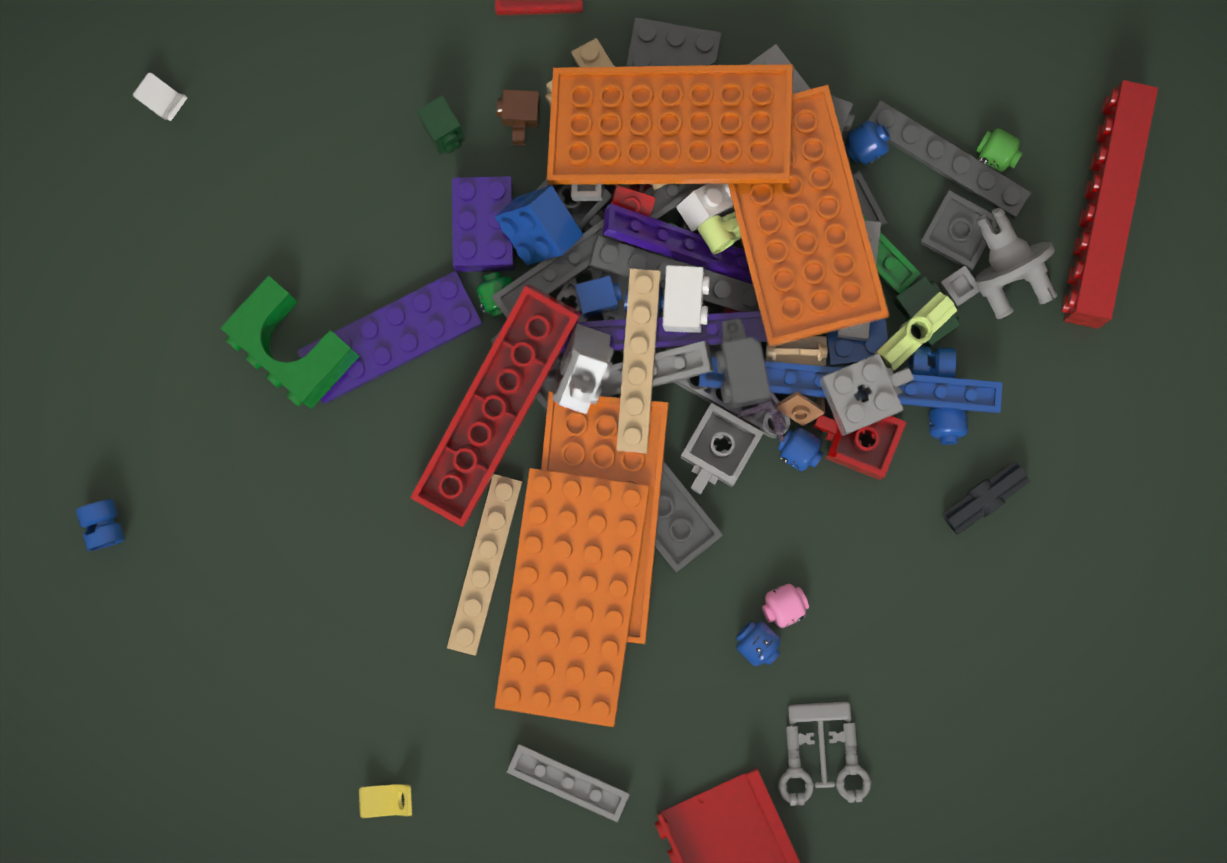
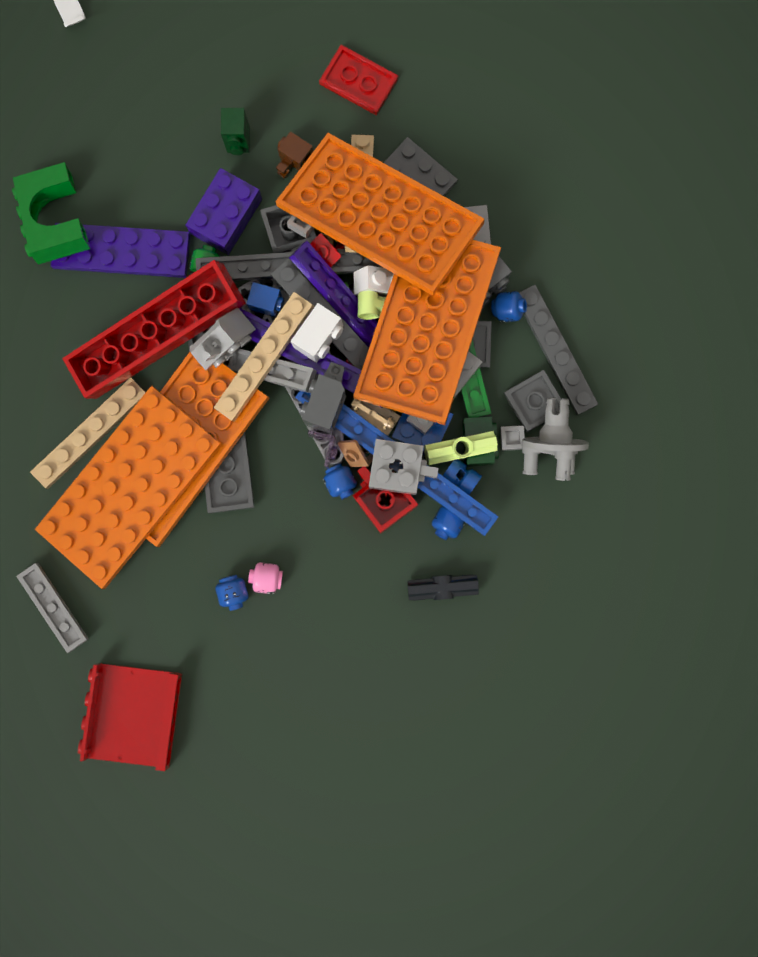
camera: 30 degrees right, 0 degrees up
(539, 225) = (254, 230): blue brick -> none
(723, 465) = (274, 441): light grey hinge -> none
(822, 712) = (246, 663): light grey piece -> none
(999, 150) = (594, 363): bright green head -> none
(1109, 204) = (646, 442): red brick -> none

